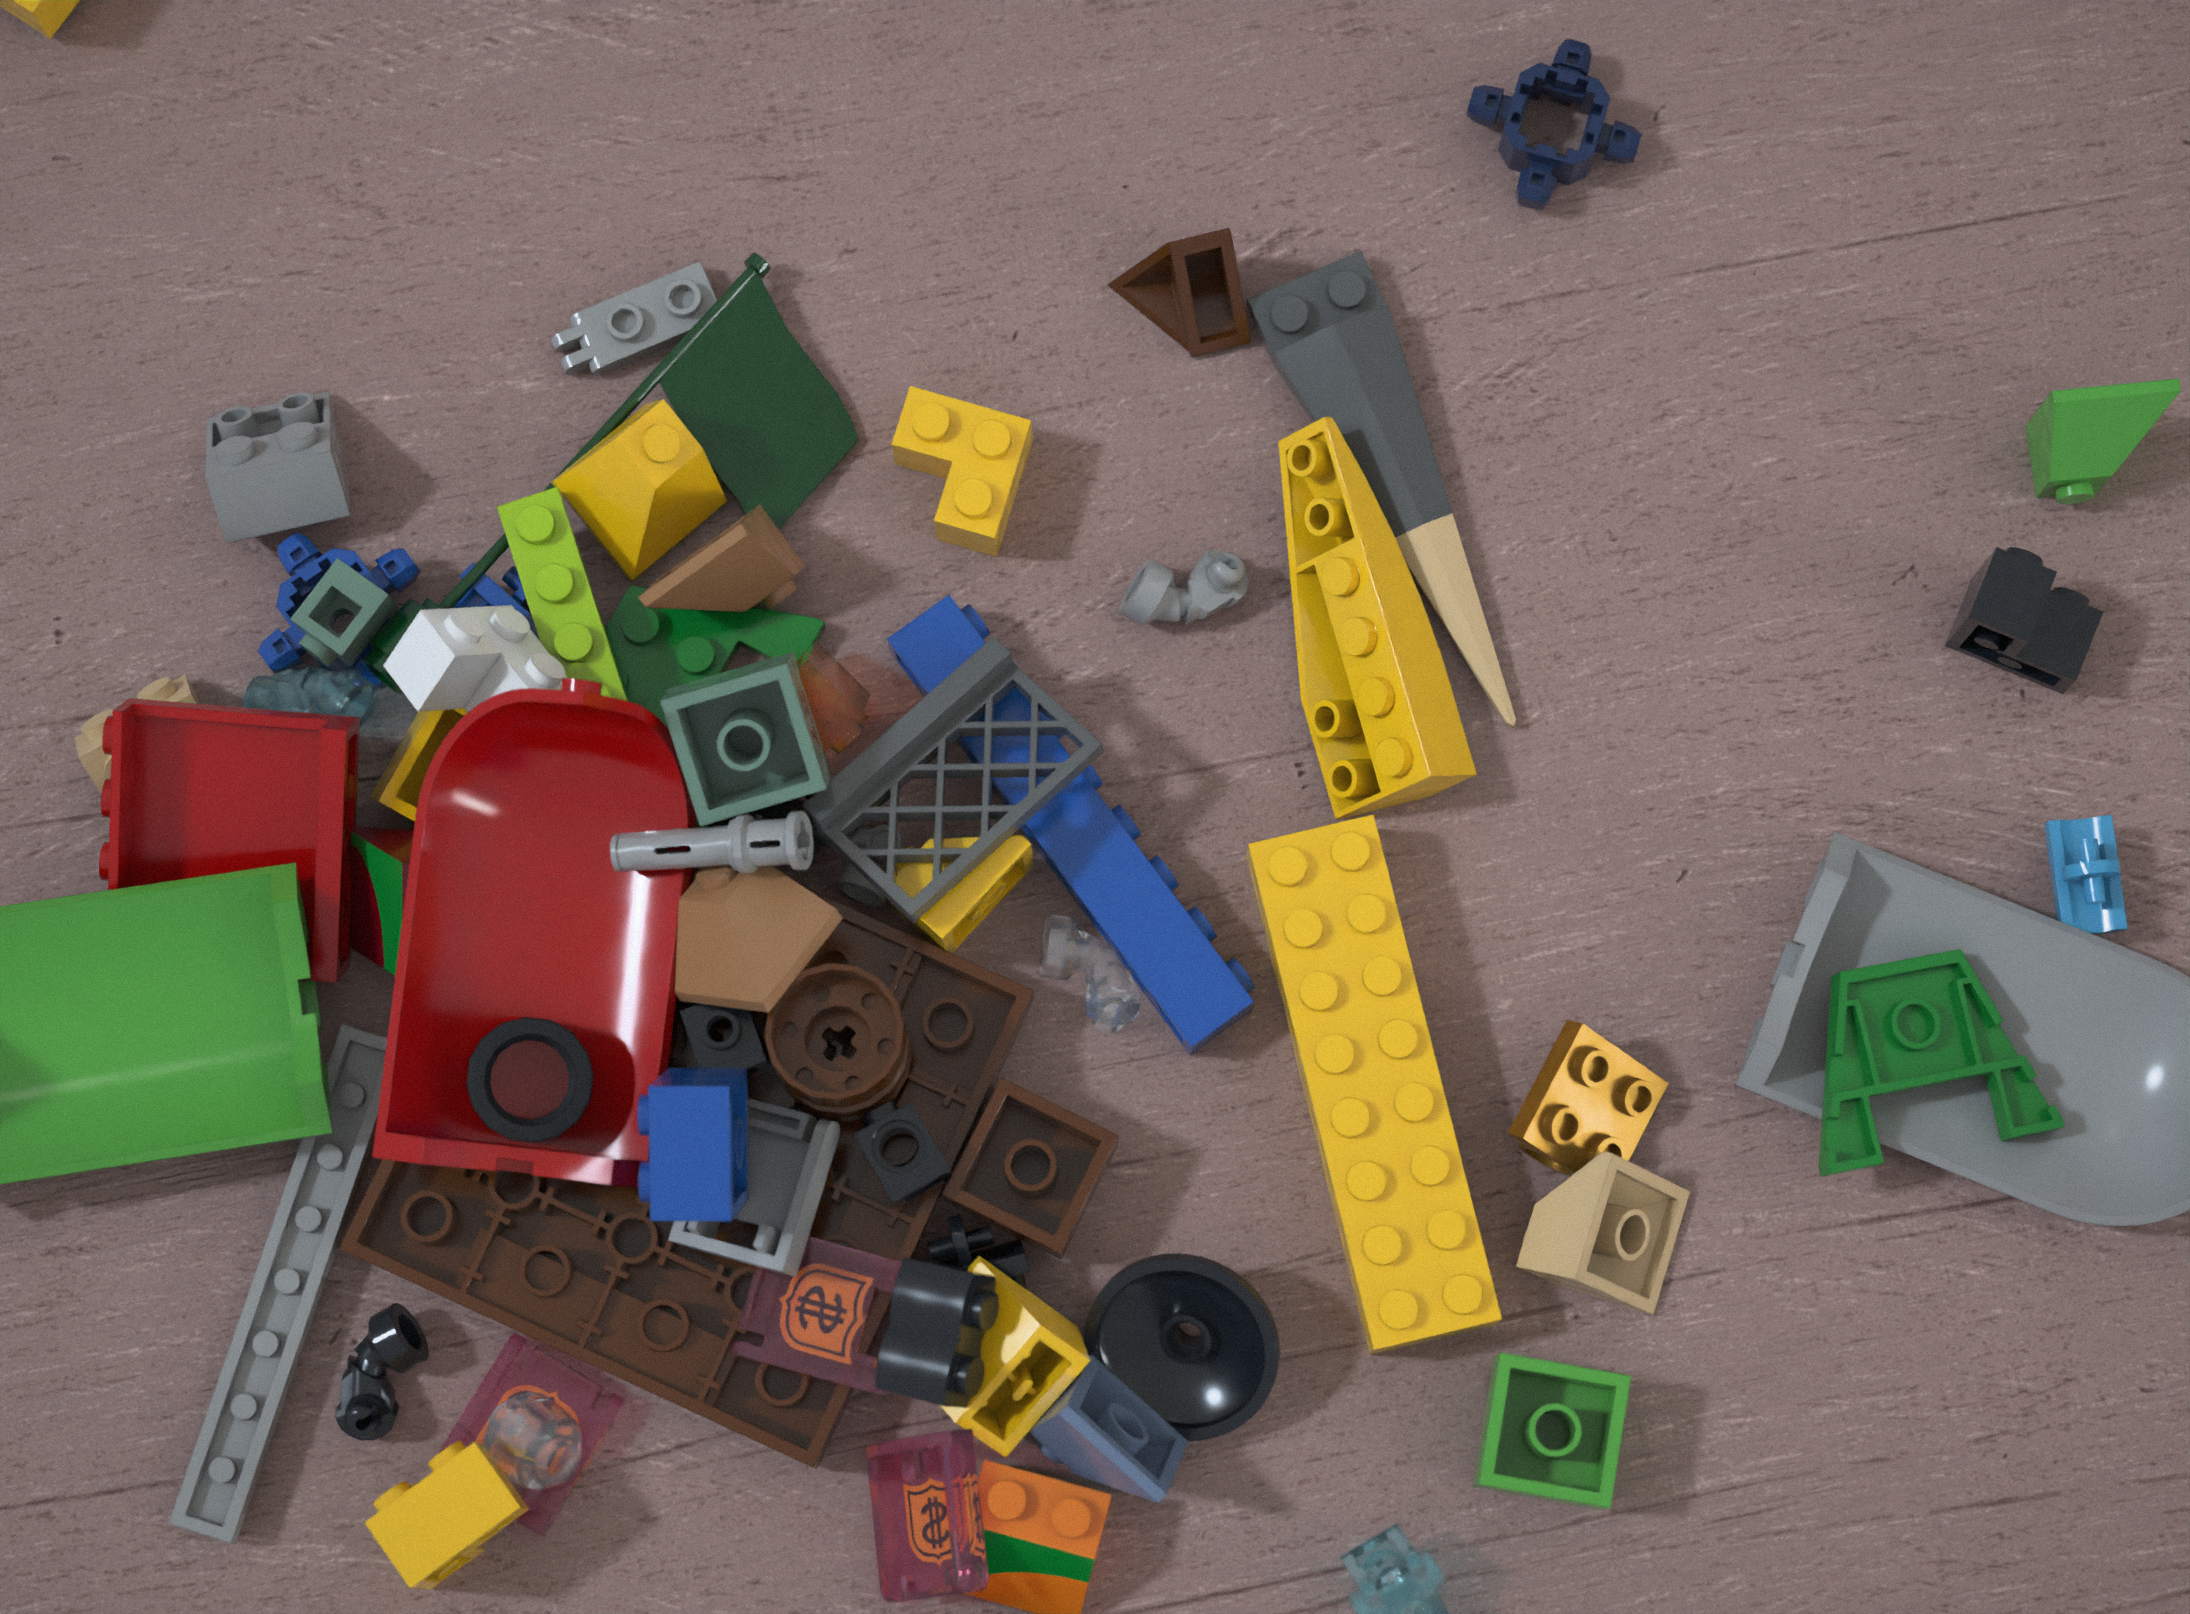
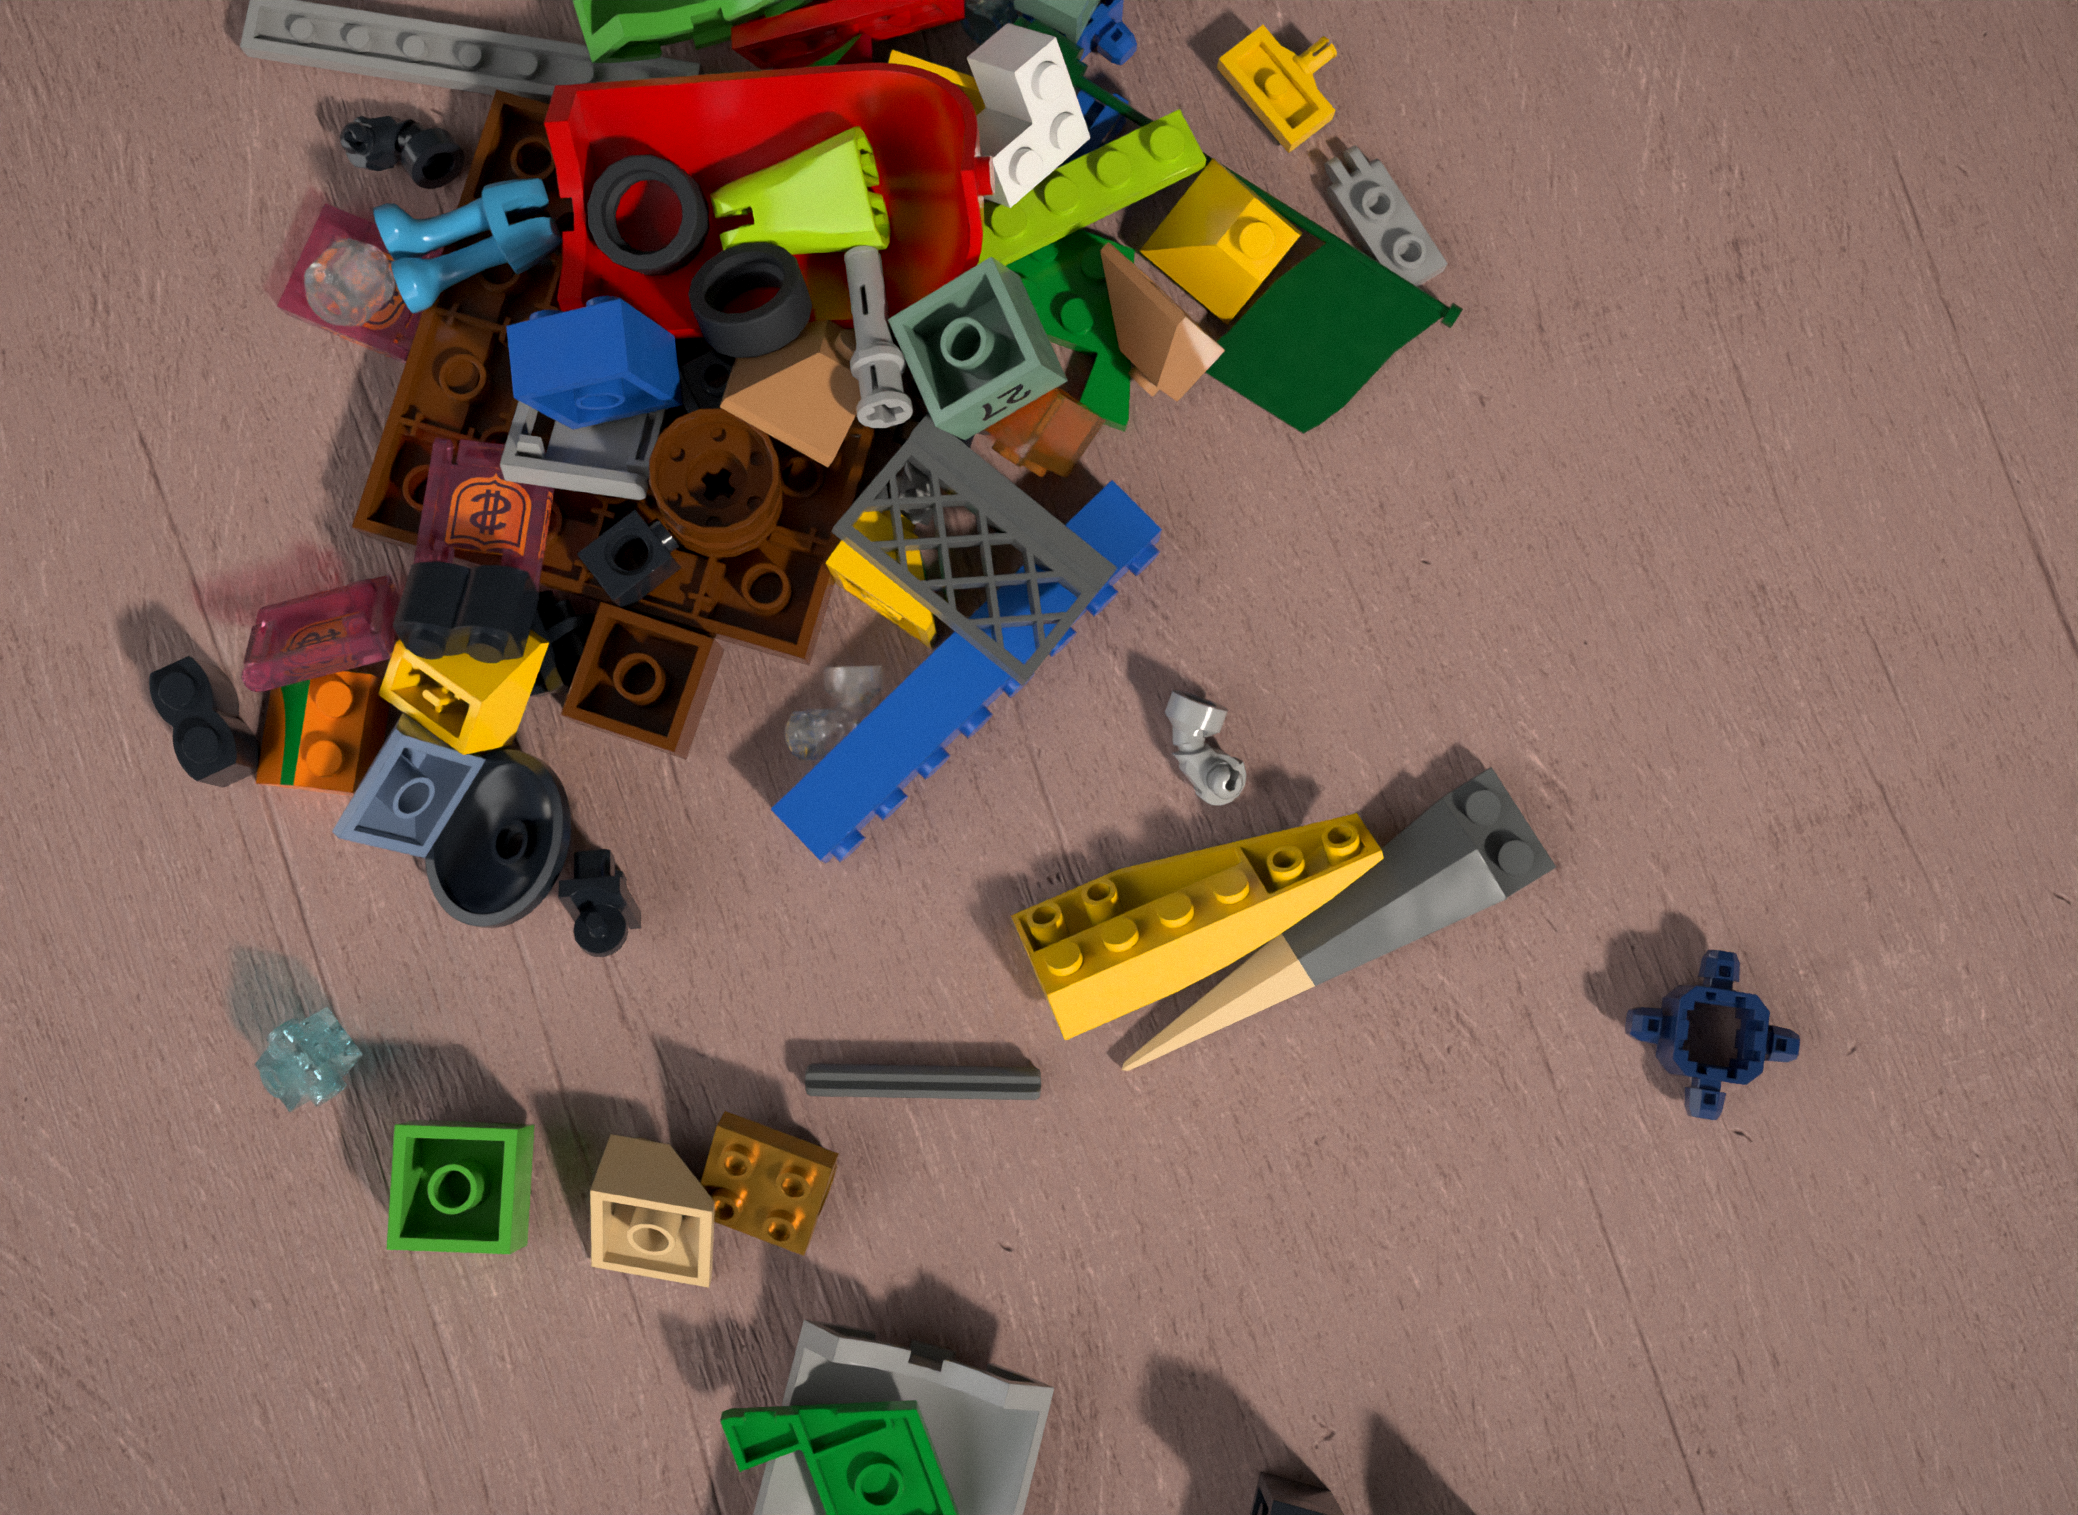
camera: 80 degrees right, 5 degrees up
(446, 1516) = (265, 210): yellow brick -> none
(472, 405) = (1280, 84): none -> yellow plate
(533, 1237) = (501, 203): none -> dark azure piece
(550, 905) = (811, 200): none -> lime piece
(606, 970) = (741, 270): none -> black tyre
(977, 453) = (1294, 544): yellow brick -> none
(1191, 292) = (1489, 714): reddish brown slope -> none
(1269, 1243) = (599, 903): none -> black hips
(1372, 1085) = (758, 981): yellow brick -> none
(1500, 934) = (923, 1081): none -> dark grey axle

